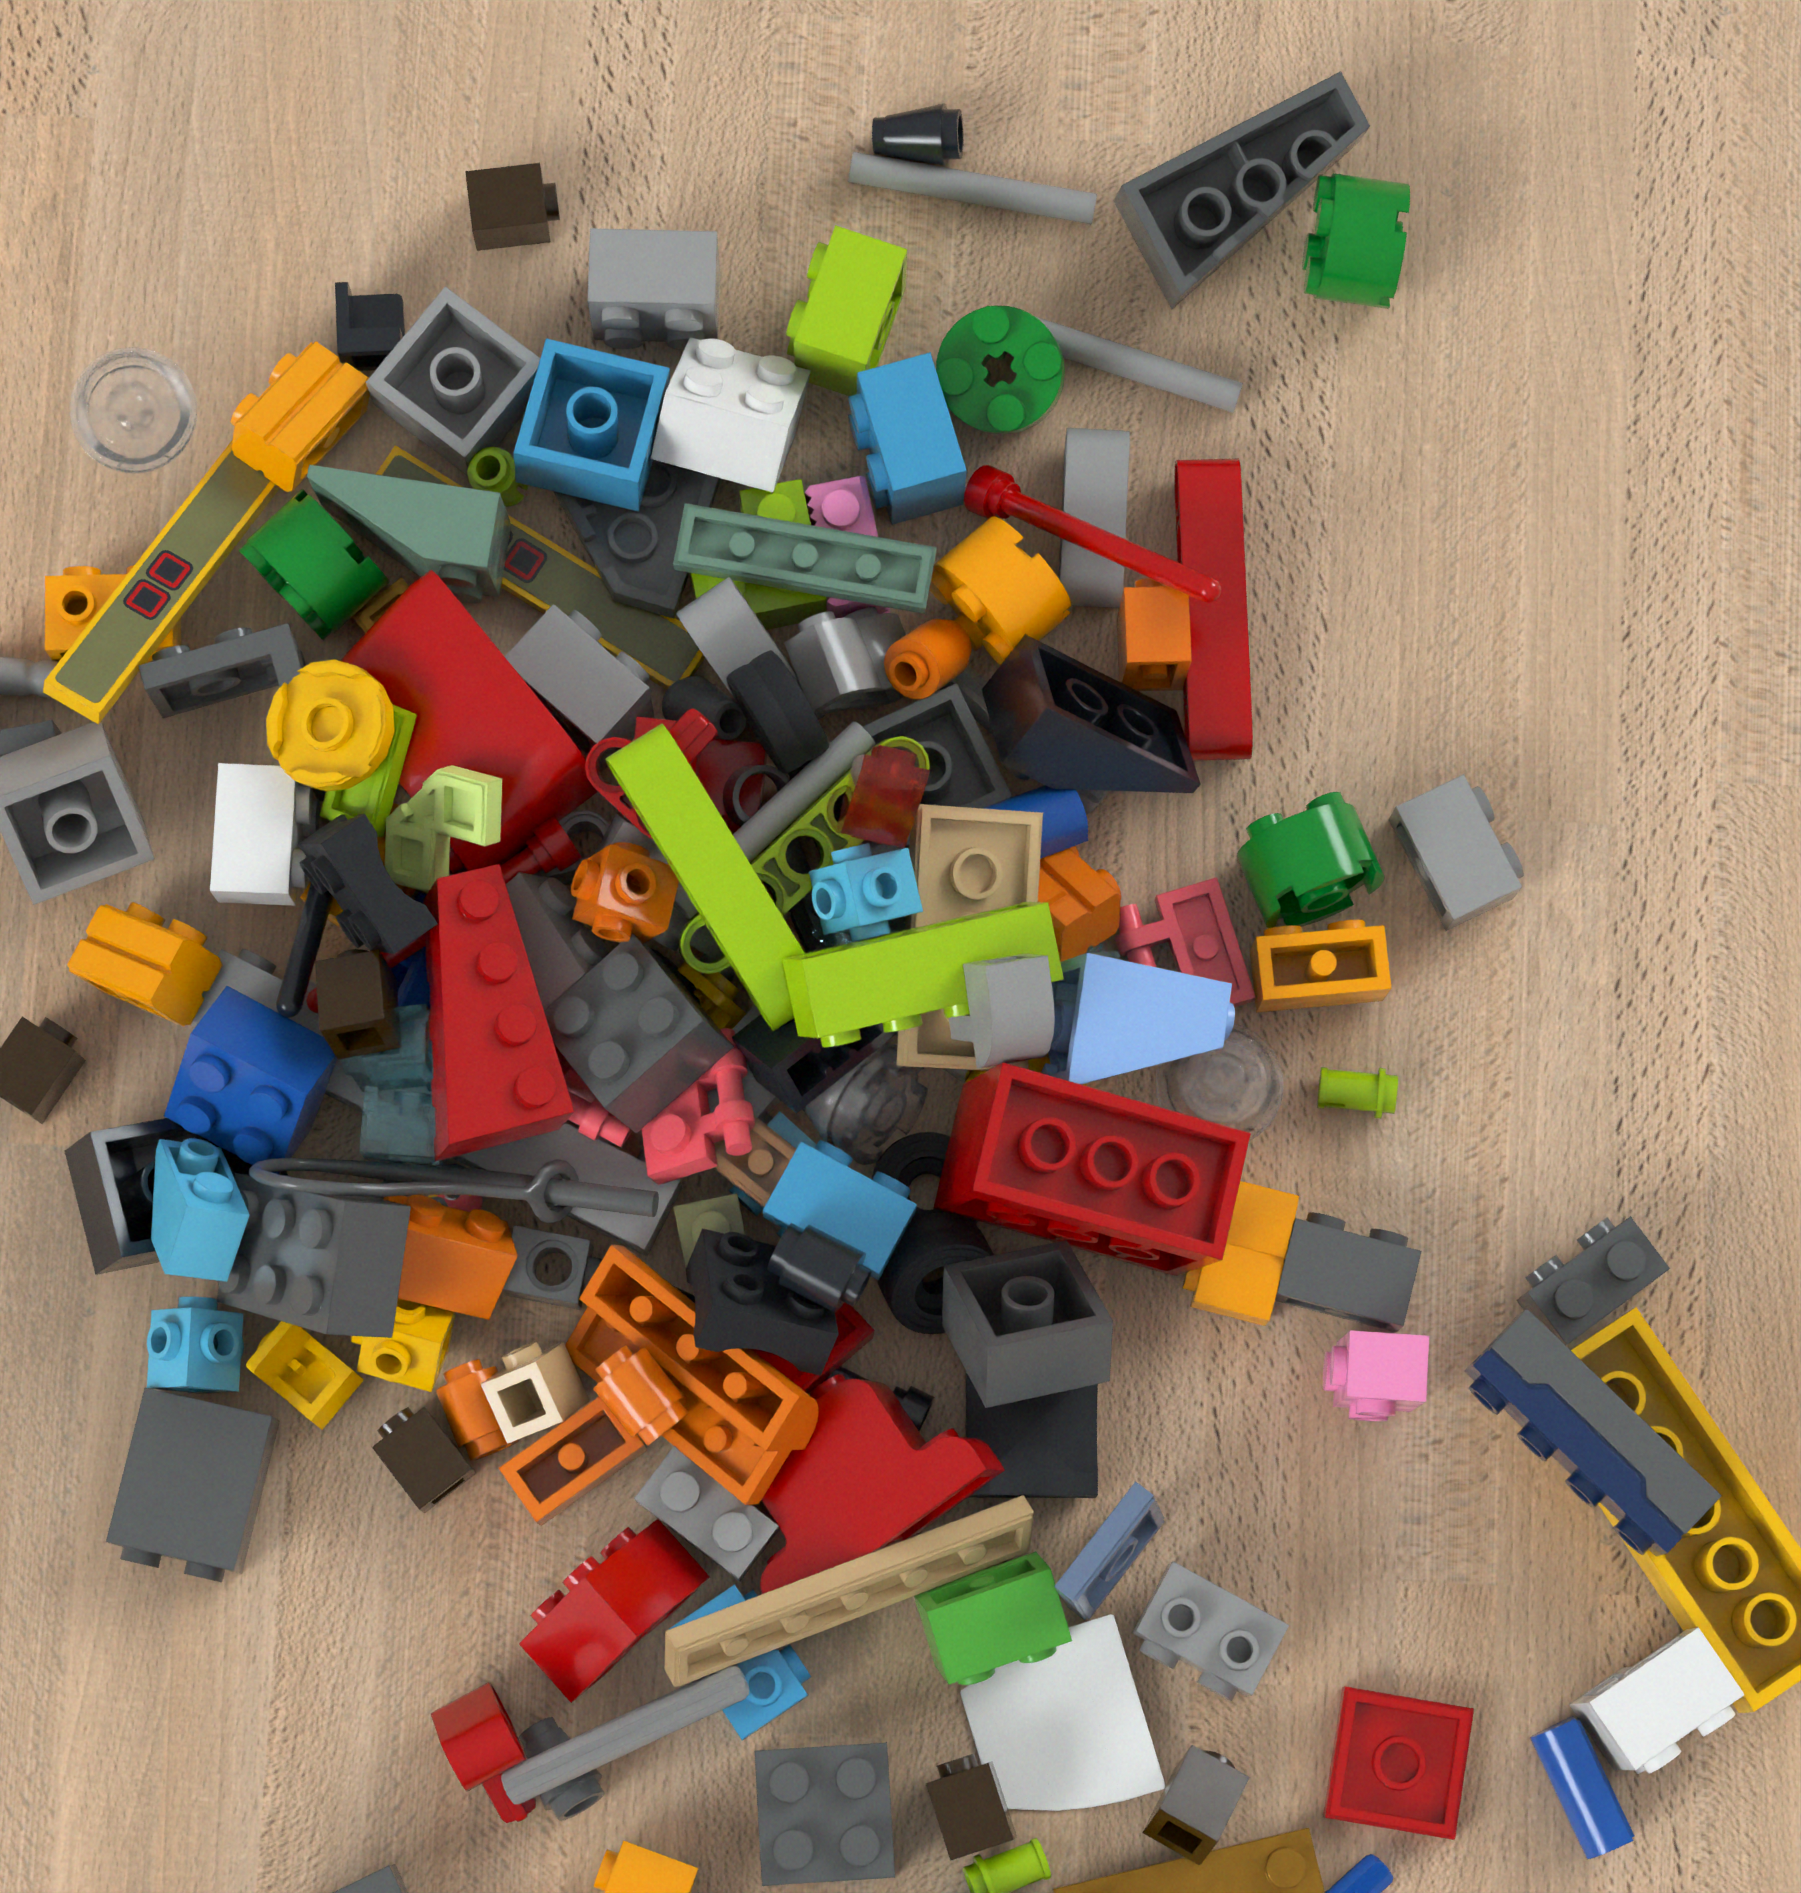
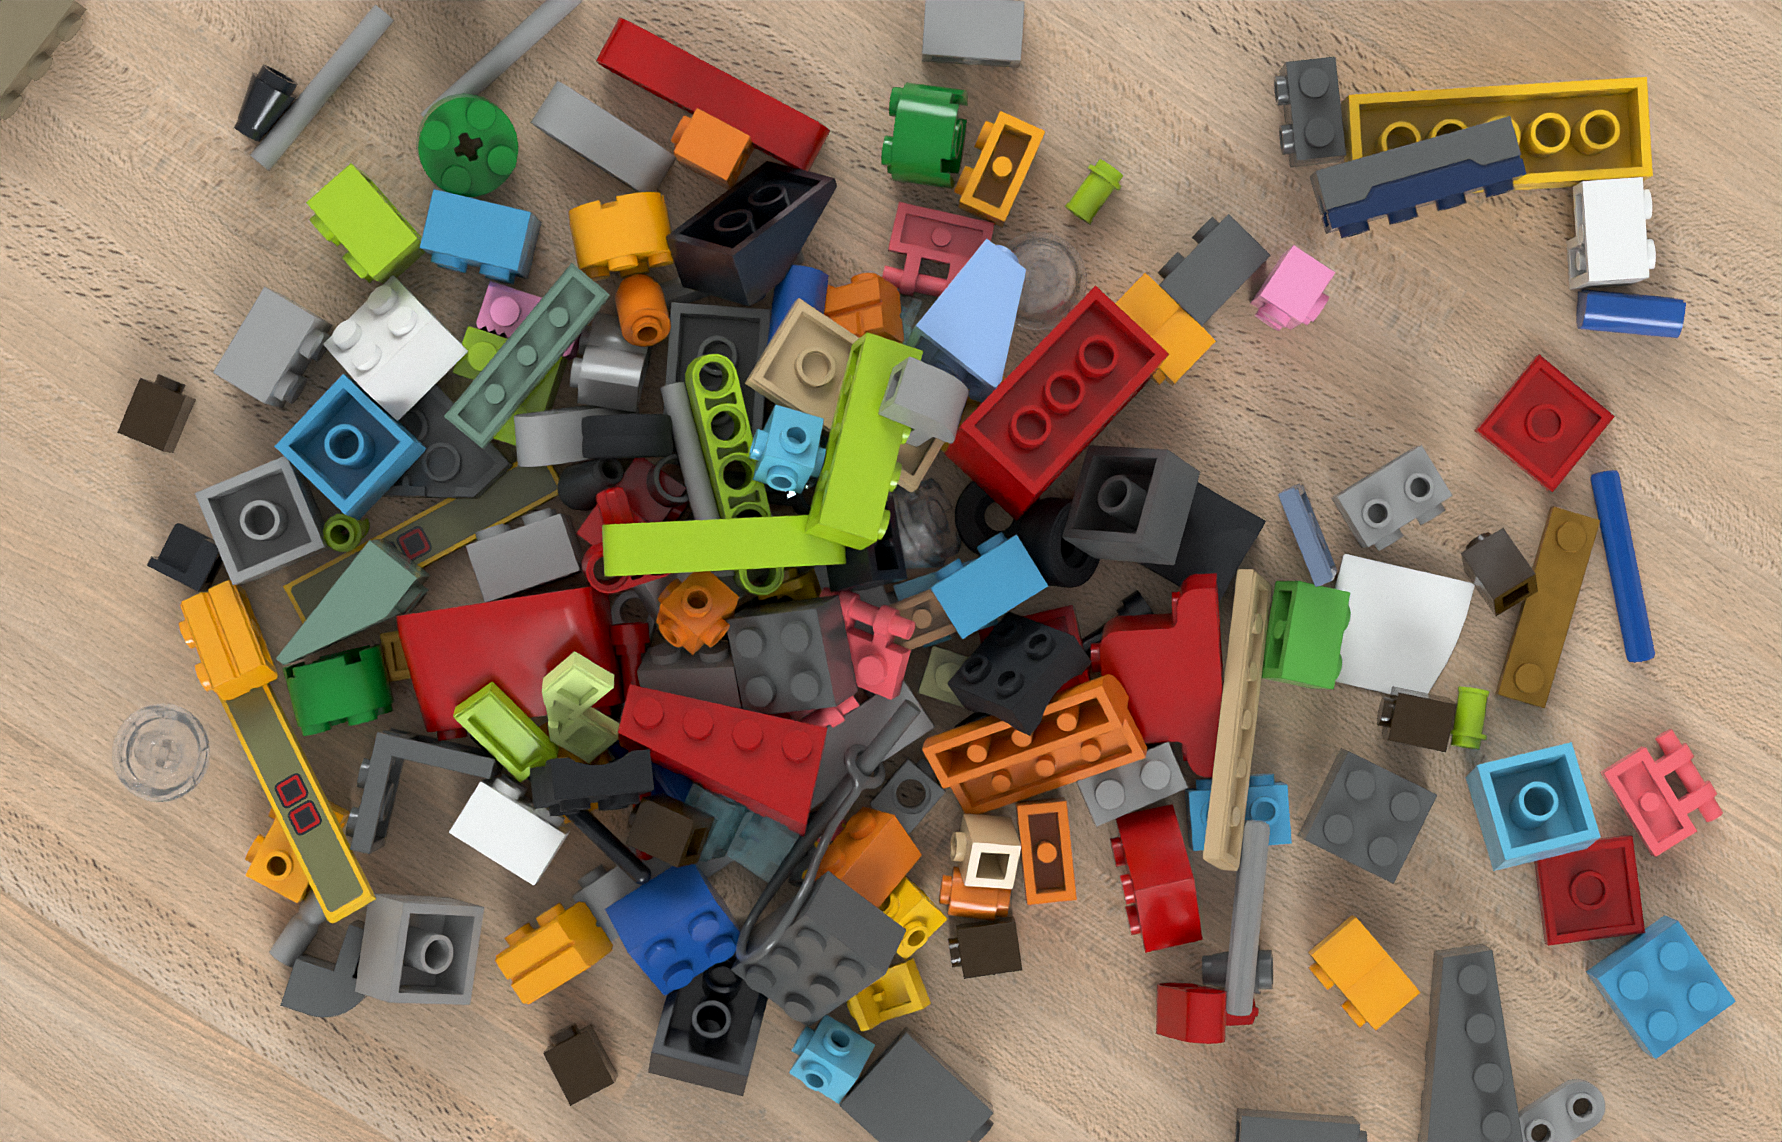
camera: 65 degrees left, 10 degrees up
(196, 1210) = (743, 1010): medium azure slope -> none
(330, 725) = (467, 744): yellow tile -> none
(639, 1394) = (1033, 786): orange brick -> none
(819, 1267) = (1024, 623): black brick -> none
(882, 796) = (733, 403): clear red slope -> none
(997, 495) = (550, 197): red piece -> none

